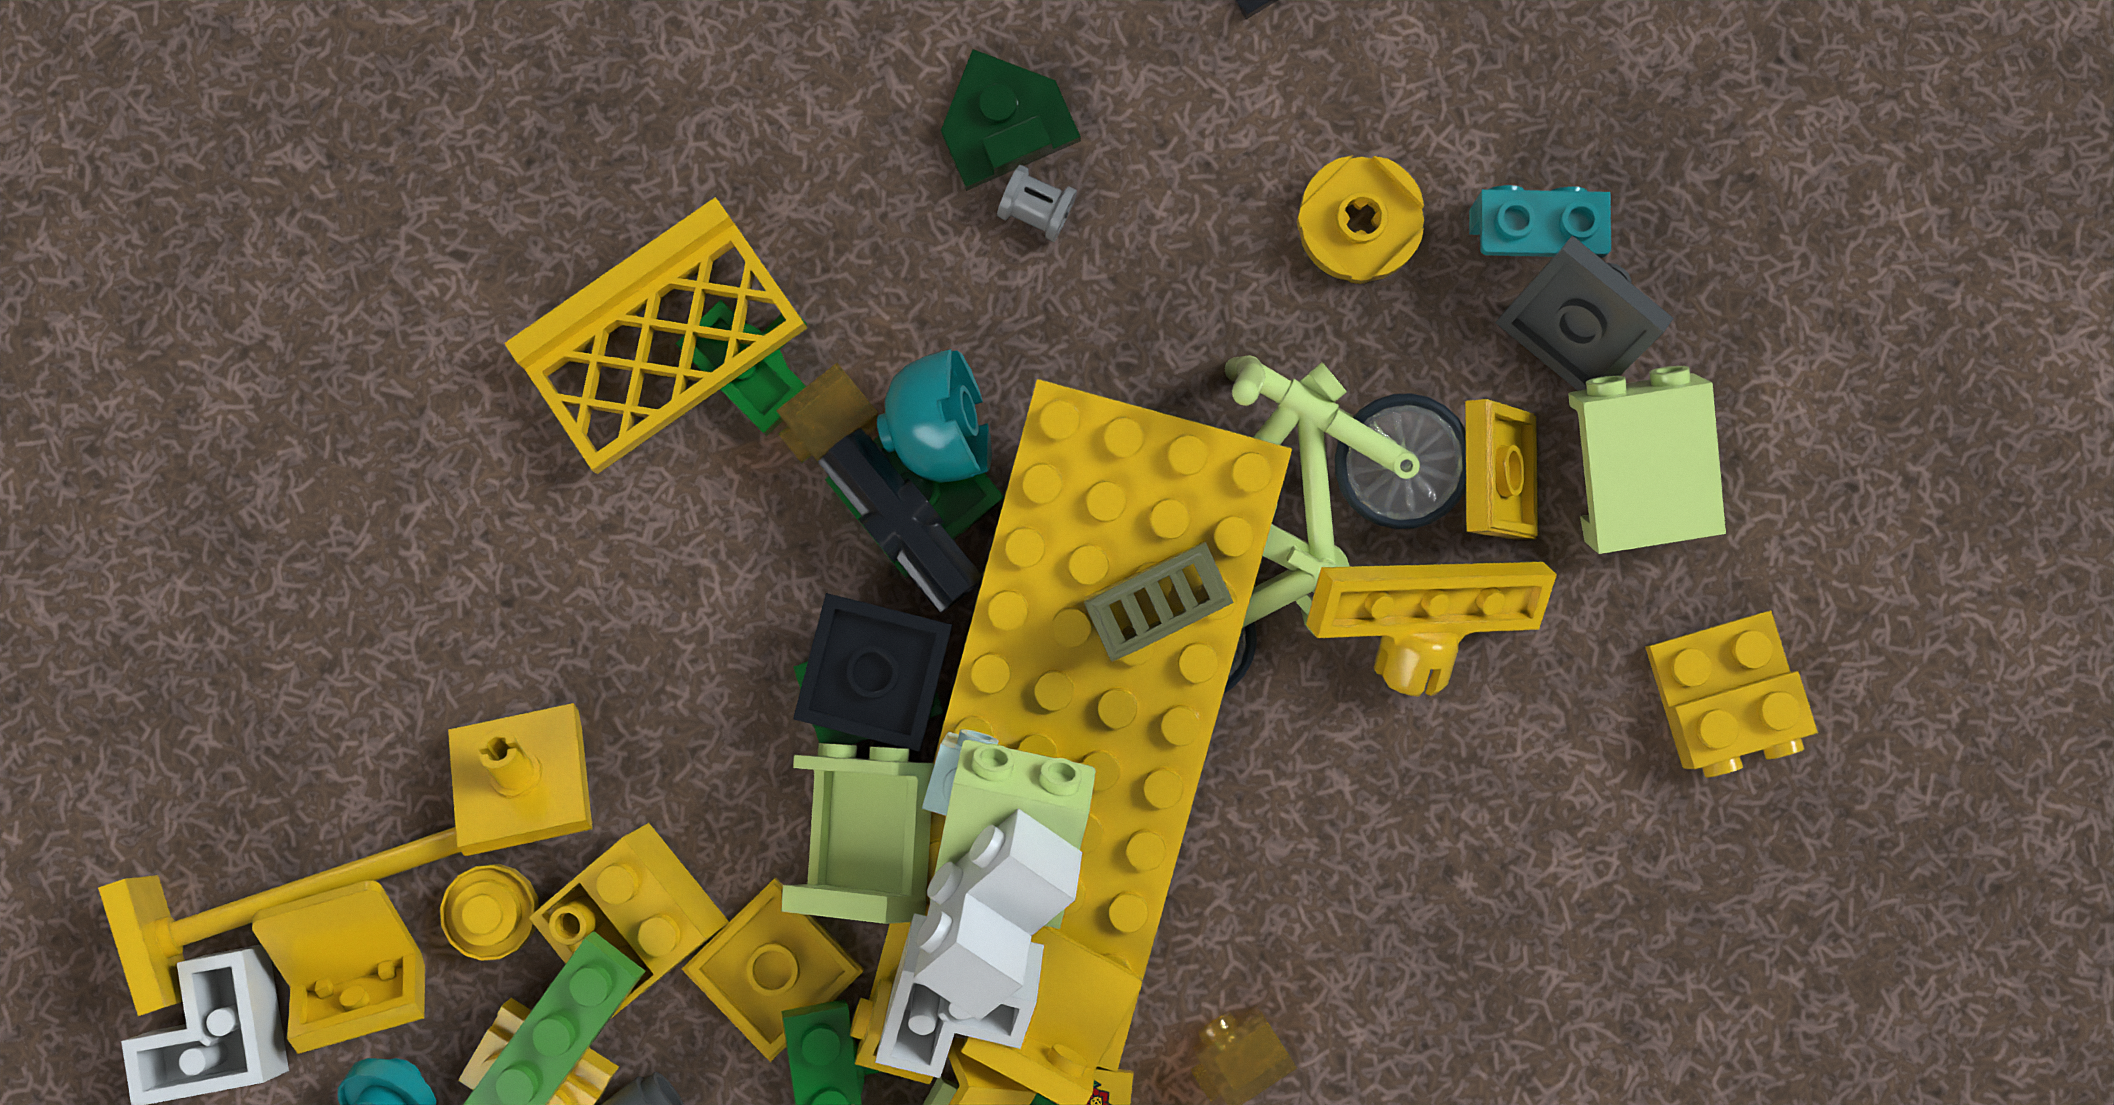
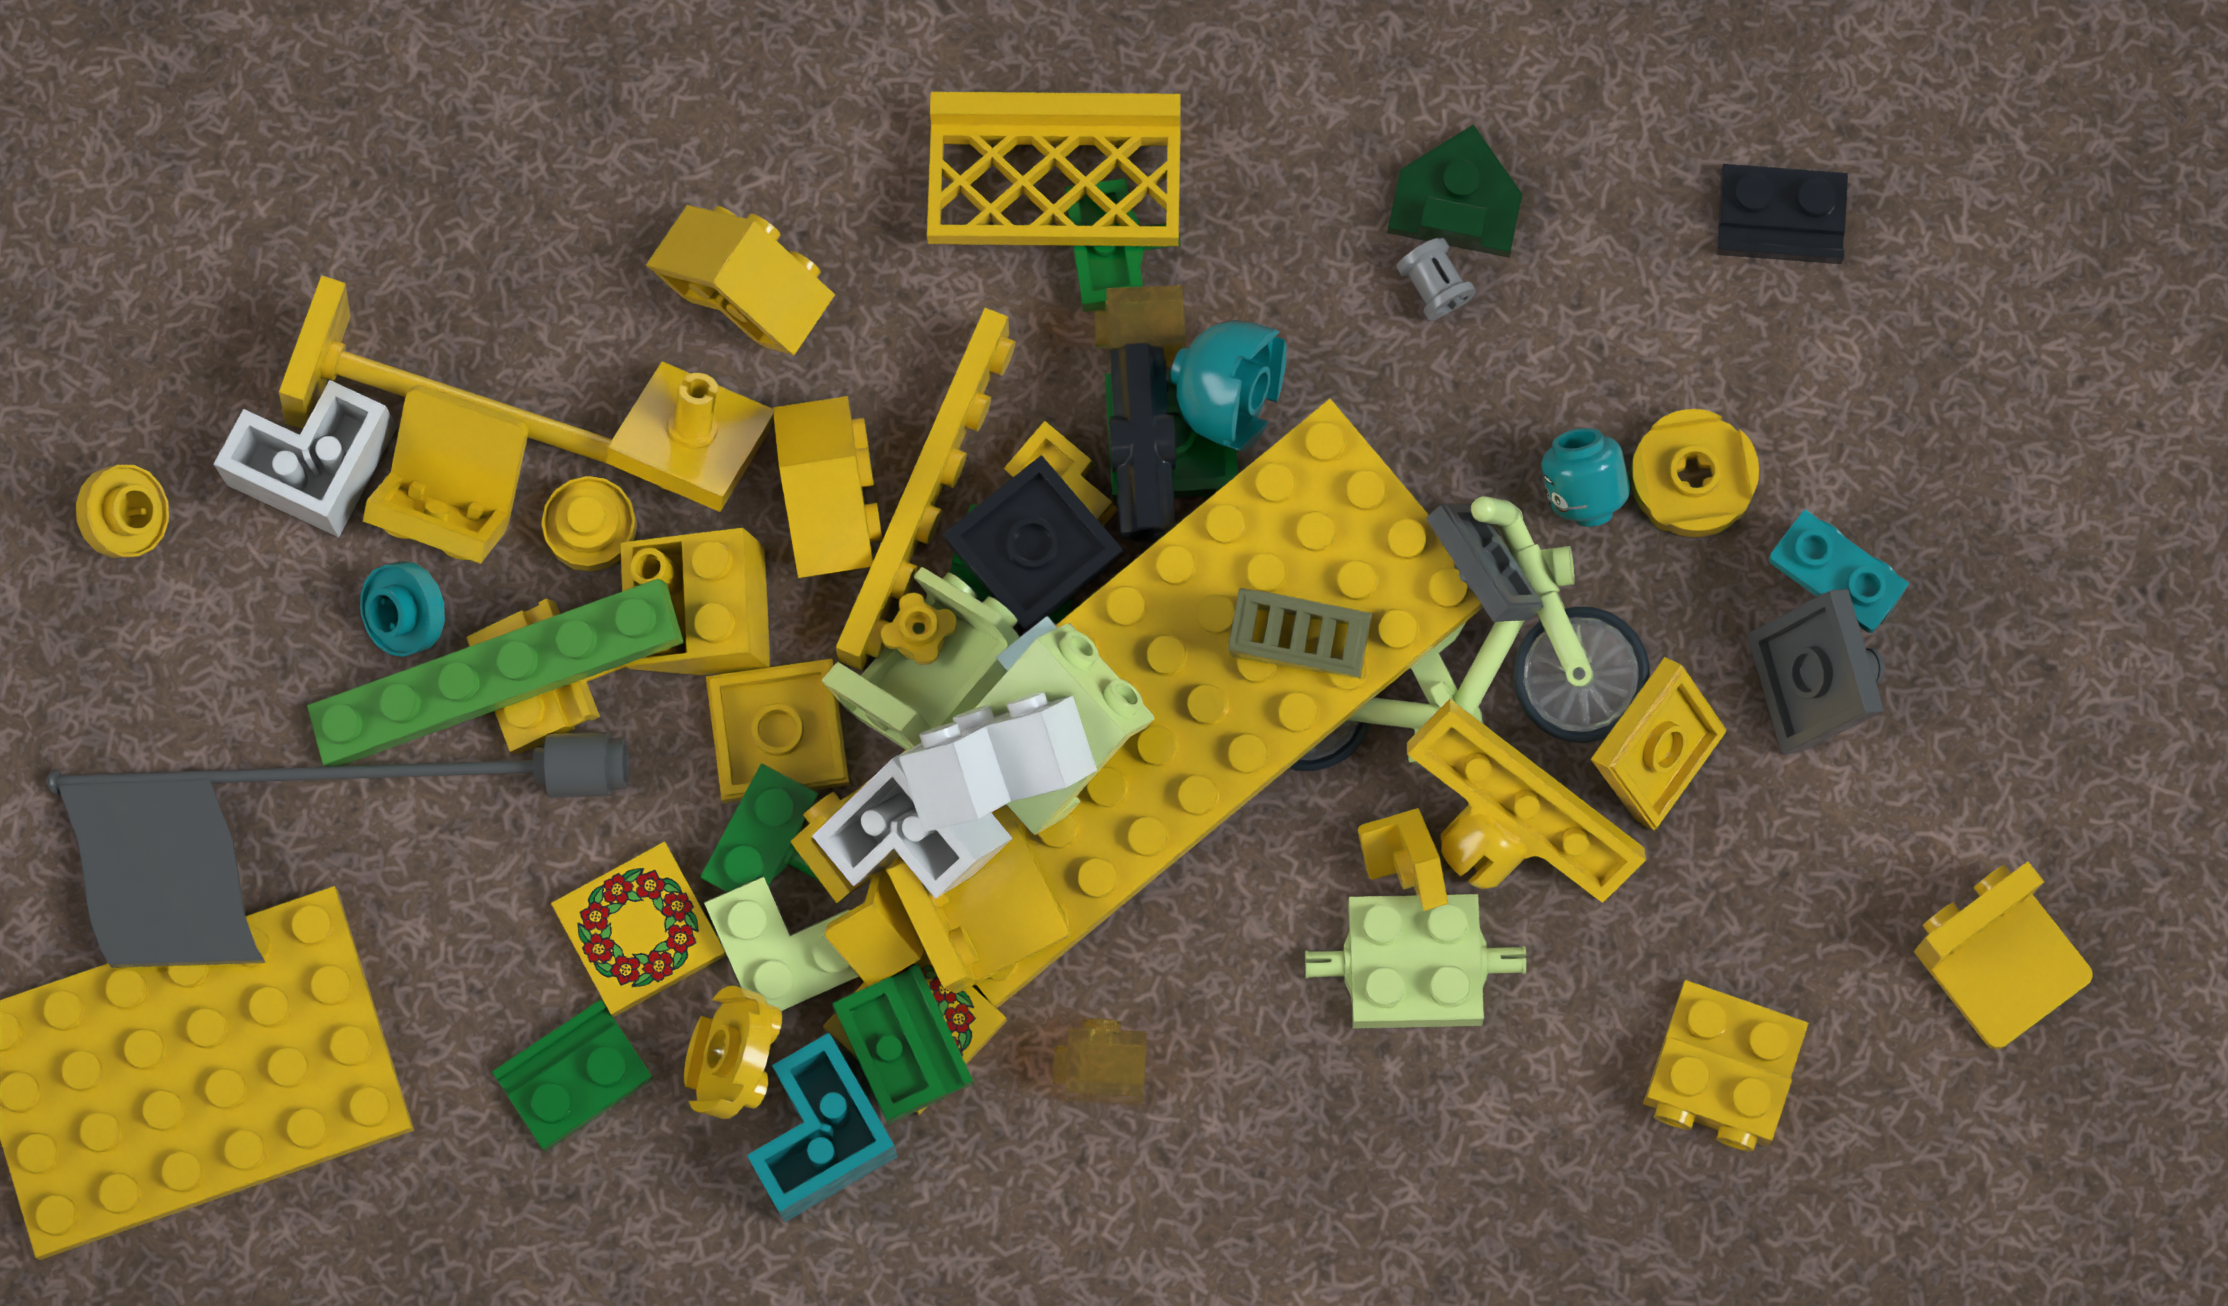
camera: 40 degrees right, 10 degrees down
(462, 613) = (744, 274): none -> yellow brick
(660, 743) = (822, 479): none -> yellow brick
(742, 655) = (937, 465): none -> yellow plate
(845, 820) = (921, 647): none -> yellow plate
(851, 580) = (1070, 465): none -> yellow plate
(1268, 431) = (1485, 564): none -> dark grey plate
(1279, 286) = (1585, 477): none -> teal head
(1356, 699) = (1406, 848): none -> yellow bracket
(1425, 786) = (1415, 963): none -> yellowish green plate
(1649, 460) = (1788, 820): yellowish green panel -> none
(1886, 445) = (2003, 957): none -> yellow bracket

